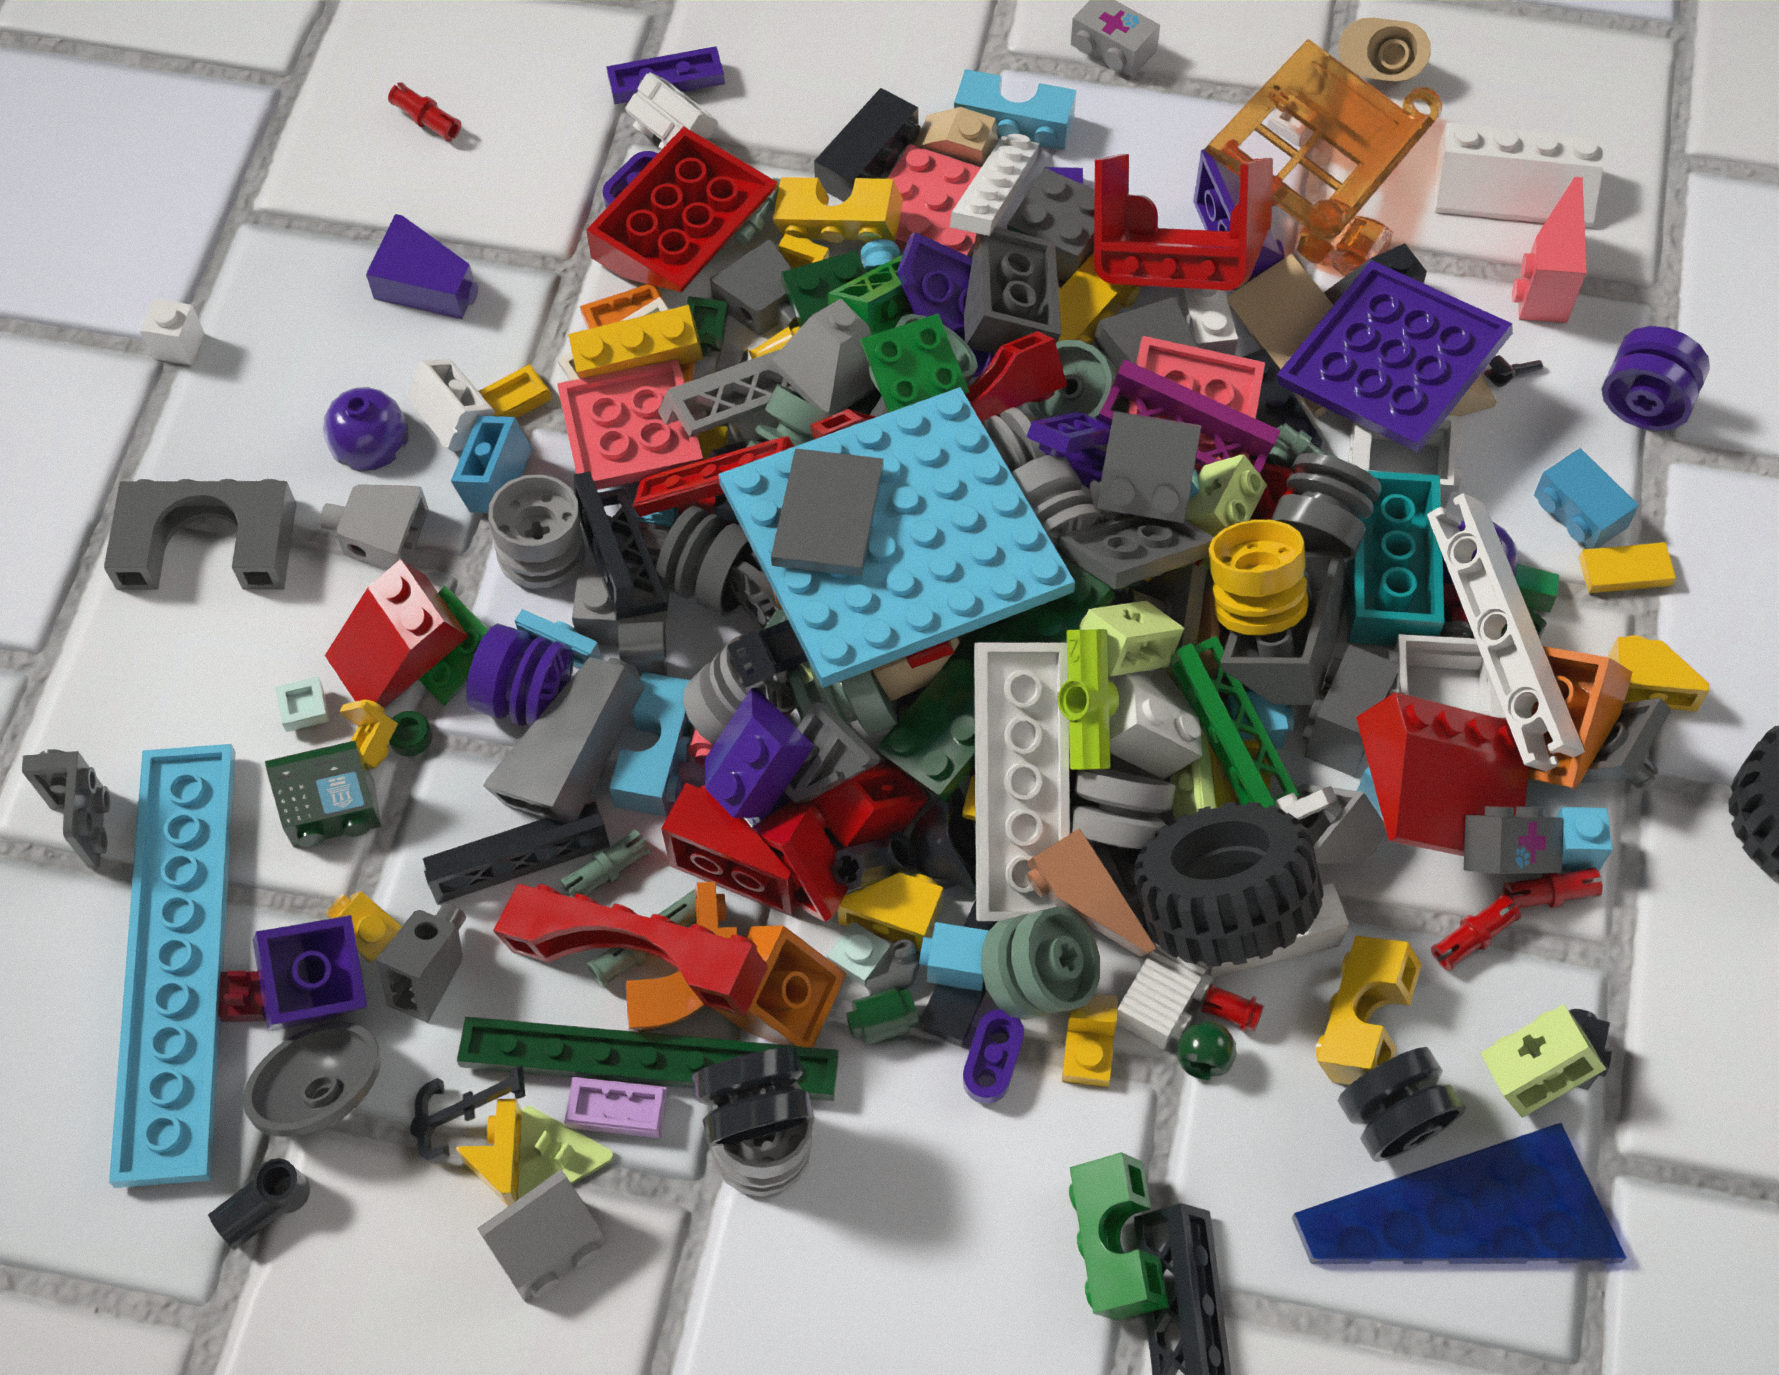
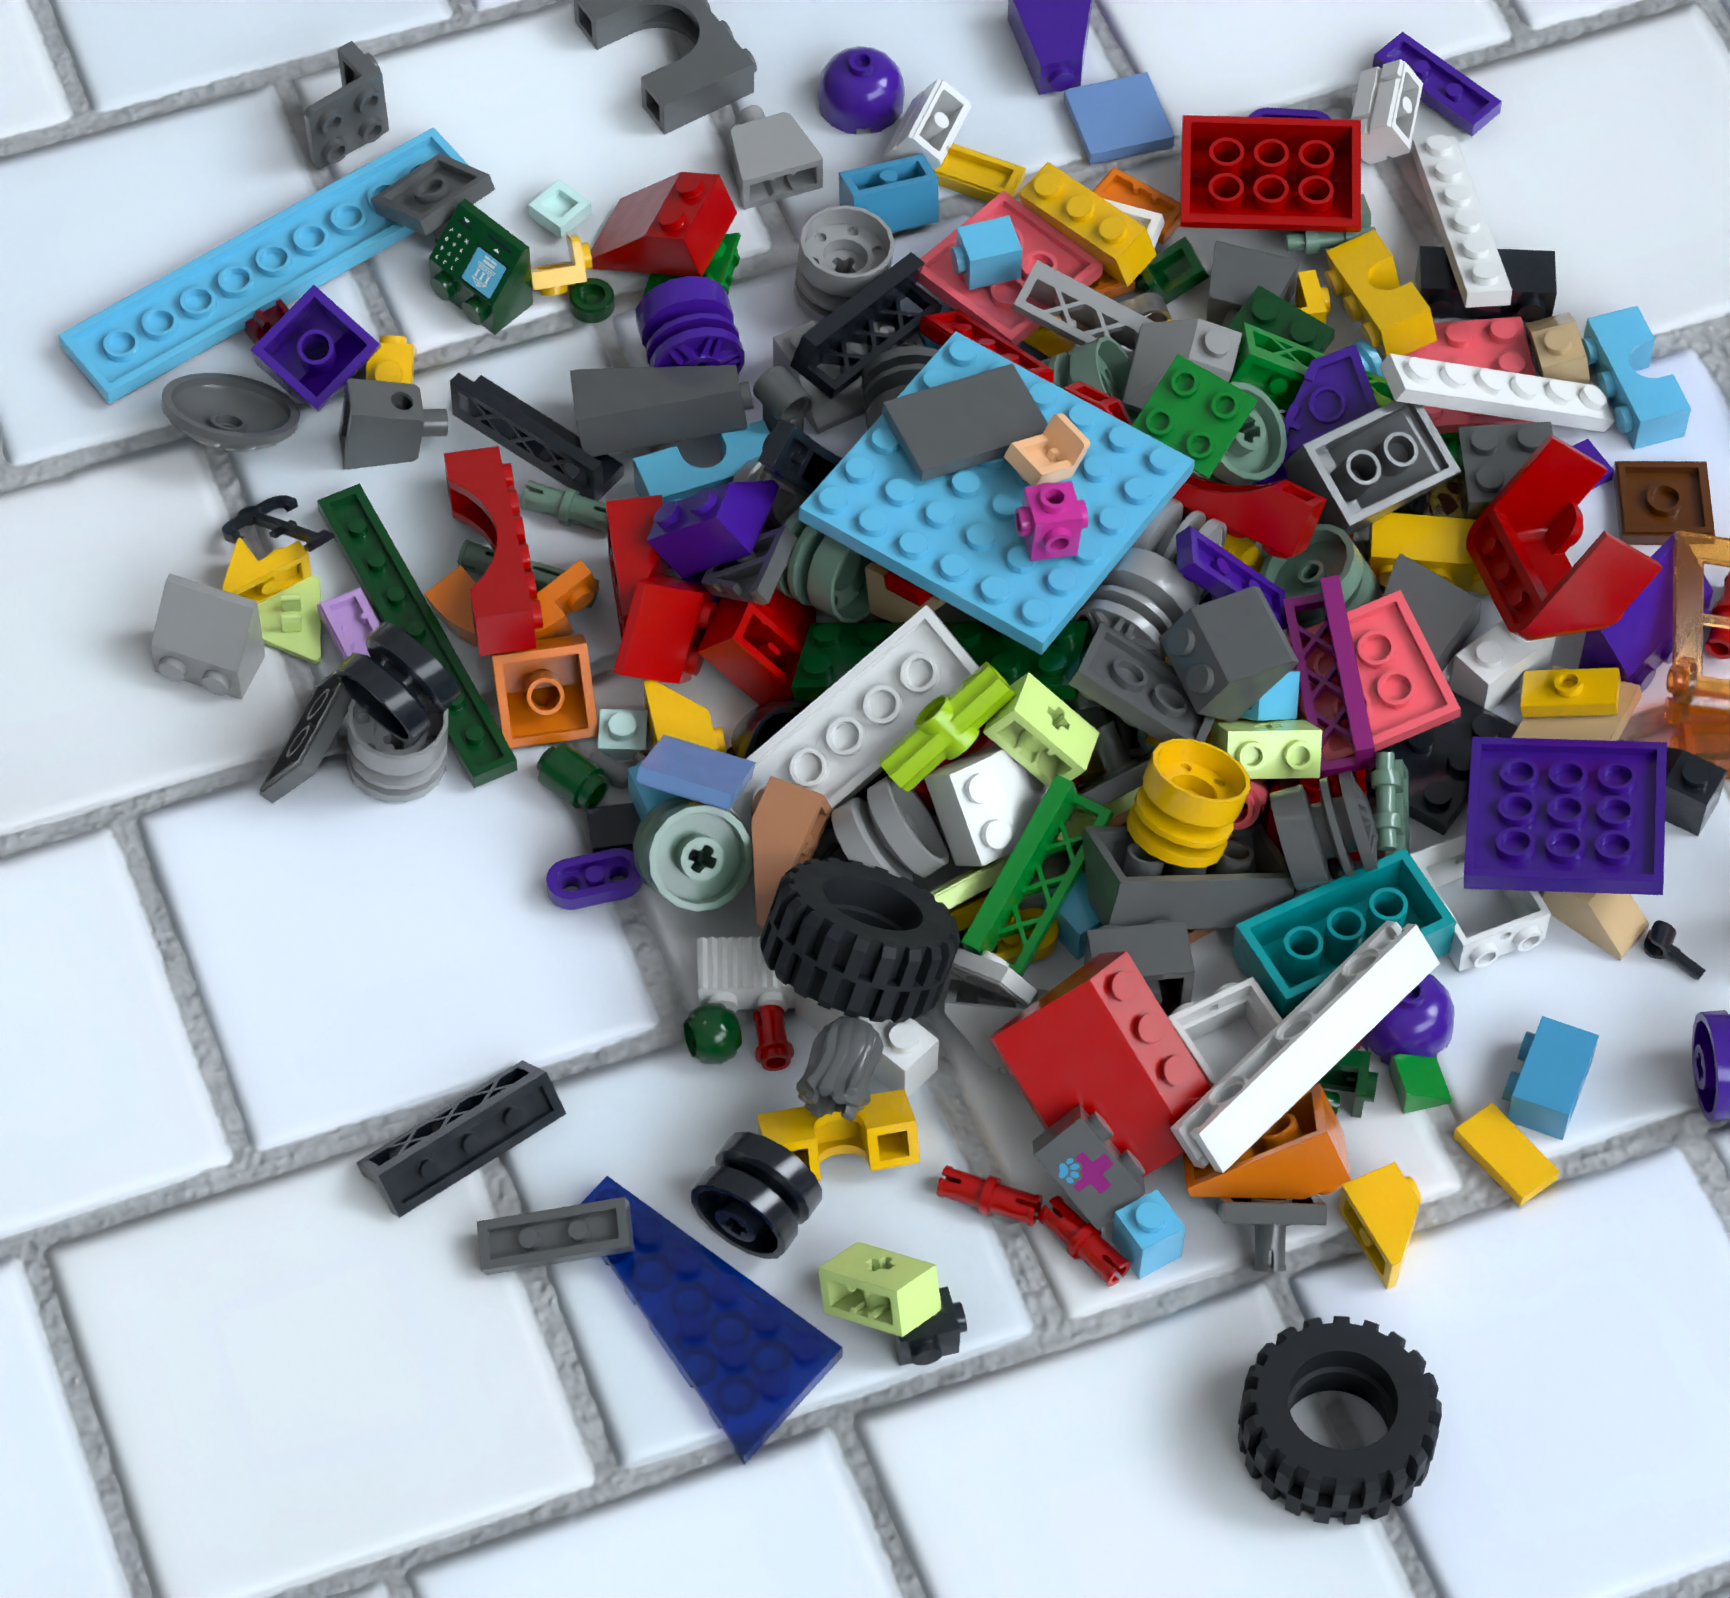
camera: 55 degrees right, 5 degrees down
(223, 787) = (431, 193): none -> dark grey tile
(256, 1205) = (122, 443): black piece -> none
(530, 280) = (1118, 118): none -> medium blue tile
(561, 632) = (757, 348): medium azure plate -> none
(619, 422) = (987, 253): none -> medium azure brick
(705, 1196) = (308, 739): none -> dark grey tile
(815, 125) = (1461, 222): none -> white plate
(874, 861) = (702, 683): black piece -> none
(907, 469) = (1049, 455): none -> light nougat bracket
(978, 504) = (1051, 520): none -> dark pink brick
(986, 912) = (695, 772): none -> medium blue tile
(1091, 1041) = (663, 945): yellow slope -> none
(1105, 1197) = (516, 1021): green arch -> none
(1147, 151) = (1661, 499): none -> reddish brown tile
(1268, 297) = (1570, 692): none -> yellow plate
(1340, 967) = (840, 1068): none -> dark grey piece
(1340, 1289) = (555, 1236): none -> dark grey plate

